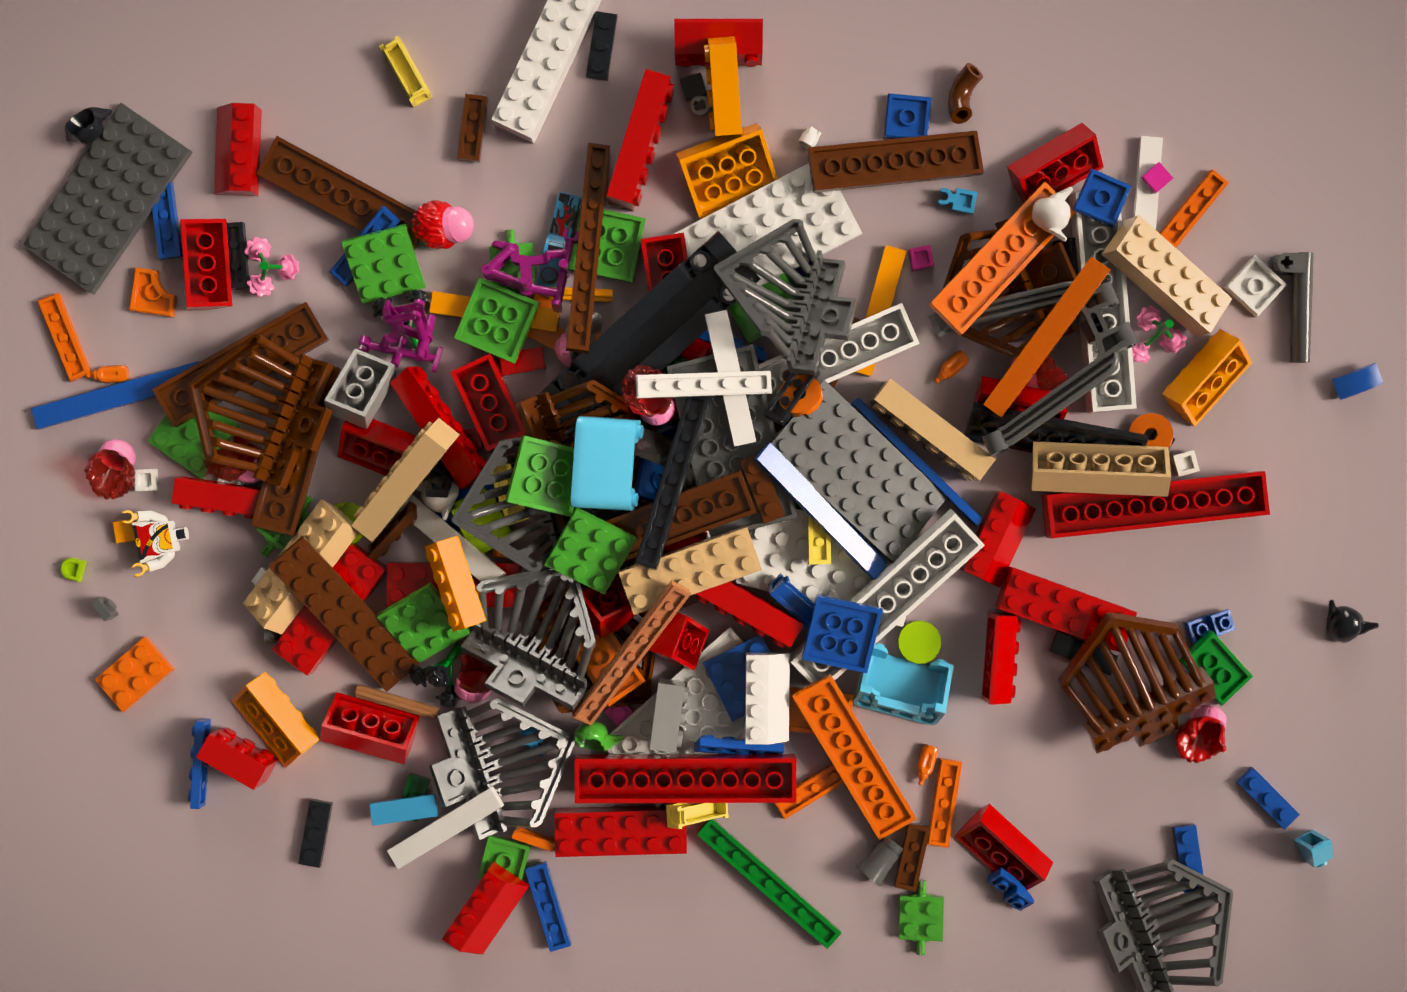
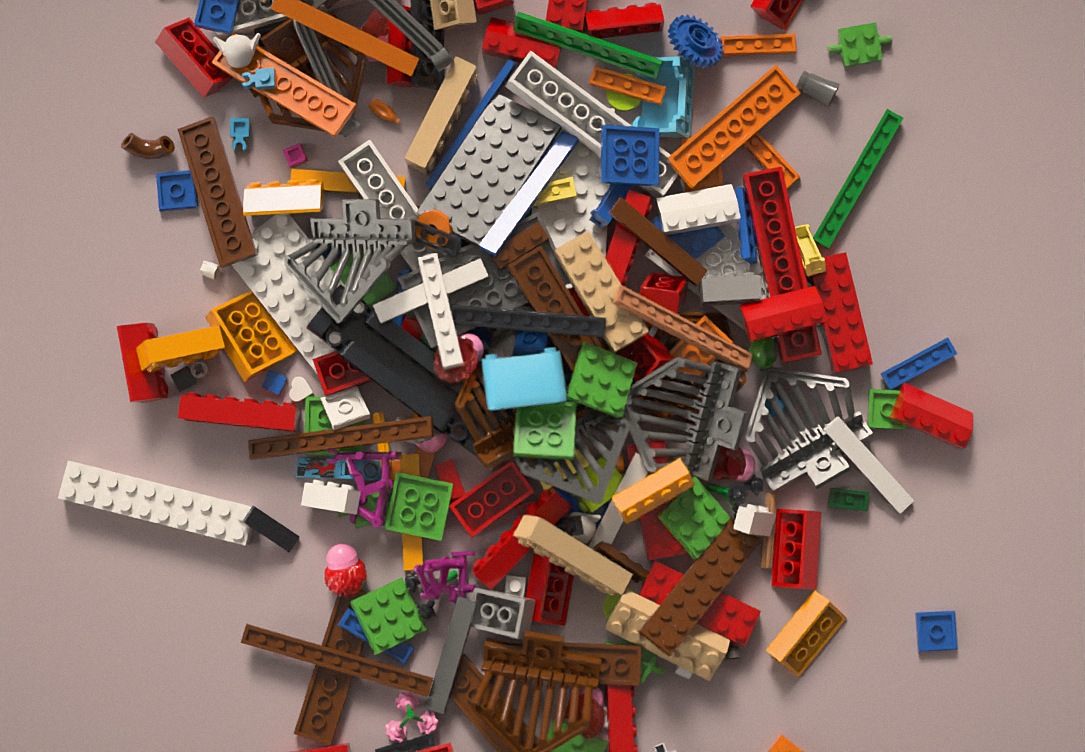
camera: 90 degrees left, 5 degrees down
(199, 771) = (867, 693): blue plate -> none
(237, 757) = (845, 658): red brick -> none
(251, 862) = (936, 631): none -> blue tile
(315, 833) = (898, 579): black plate -> none
(326, 325) = (451, 655): none -> dark grey tile
(345, 197) = (337, 660): none -> reddish brown plate
(391, 410) = (515, 585): none -> white plate
(403, 809) = (860, 504): dark azure tile -> none
(406, 71) = (216, 631): light yellow container -> none
(407, 689) = (754, 520): none -> white brick
(472, 128) = (254, 563): reddish brown plate -> none
(505, 151) = (270, 528): none -> black tile
(525, 224) = (331, 497): none -> white brick
(534, 838) = (862, 386): orange tile -> none
(601, 46) = (162, 465): black plate -> none
(618, 714) = (739, 335): dark pink plate -> none
(622, 259) = (345, 408): none -> white tile
(627, 770) = (783, 314): none -> red slope
(655, 214) = (300, 389): none -> white tile
(669, 187) = (274, 382): none -> blue tile
(738, 645) = (658, 241): none -> reddish brown tile
(873, 234) = (283, 198): none -> slope
(912, 856) = (810, 62): reddish brown plate -> none
(925, 647) = (627, 85): none -> orange tile
(926, 762) = (727, 66): orange piece -> none
(960, 734) = (695, 41): none -> blue gear
(979, 610) = (587, 45): none -> green plate
(1012, 234) = (263, 79): none -> dark azure plate

